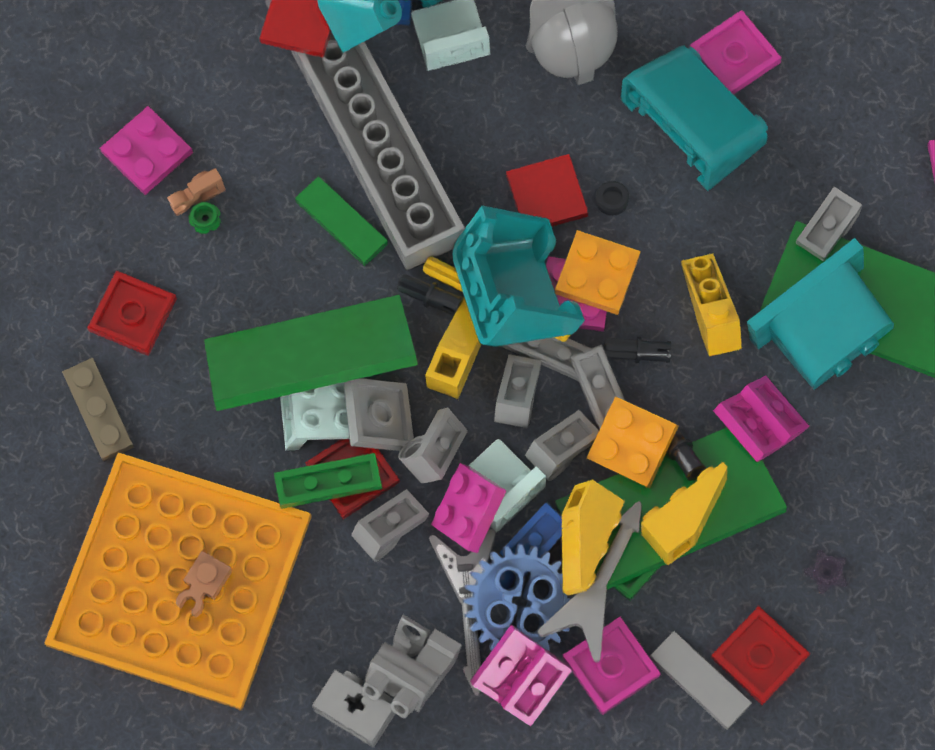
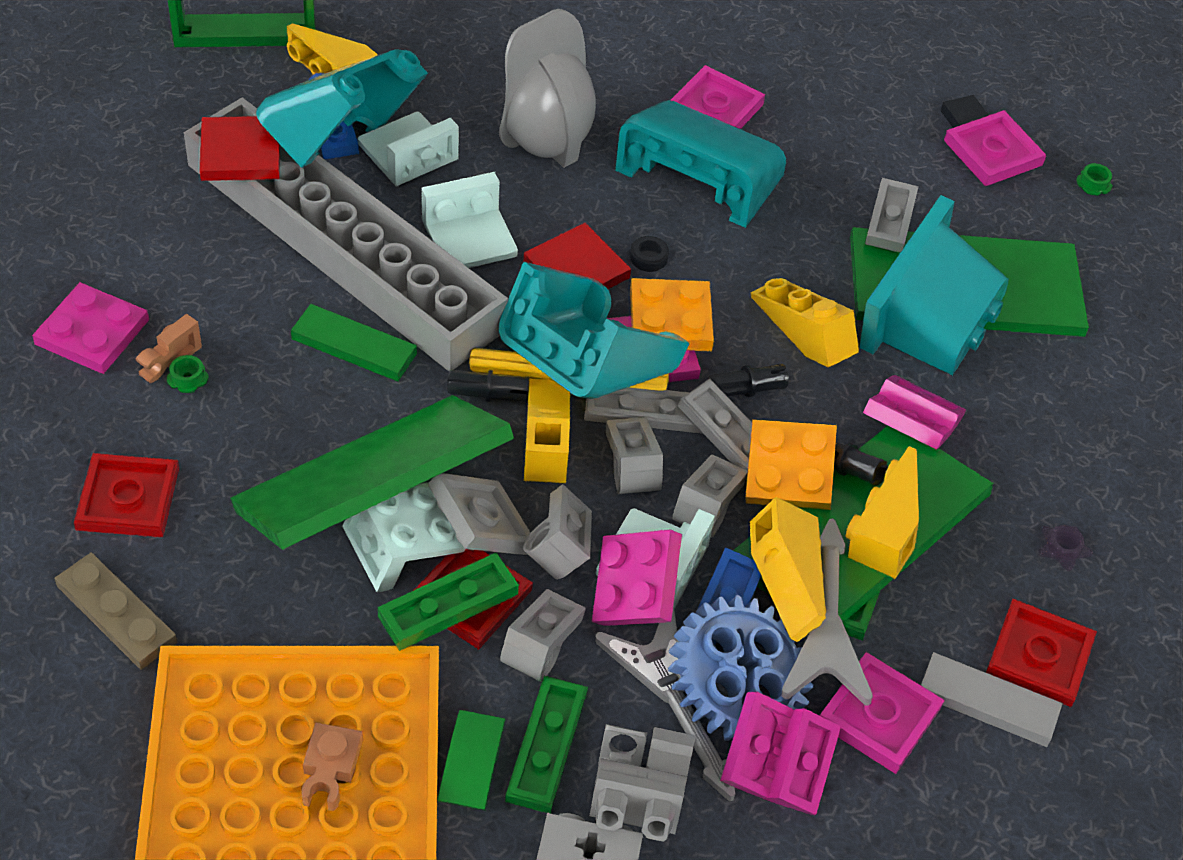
camera: 30 degrees left, 20 degrees down
(304, 607) = (471, 760): none -> green slope
(362, 610) = (546, 745): none -> green tile
(469, 133) = (467, 220): none -> light aqua bracket

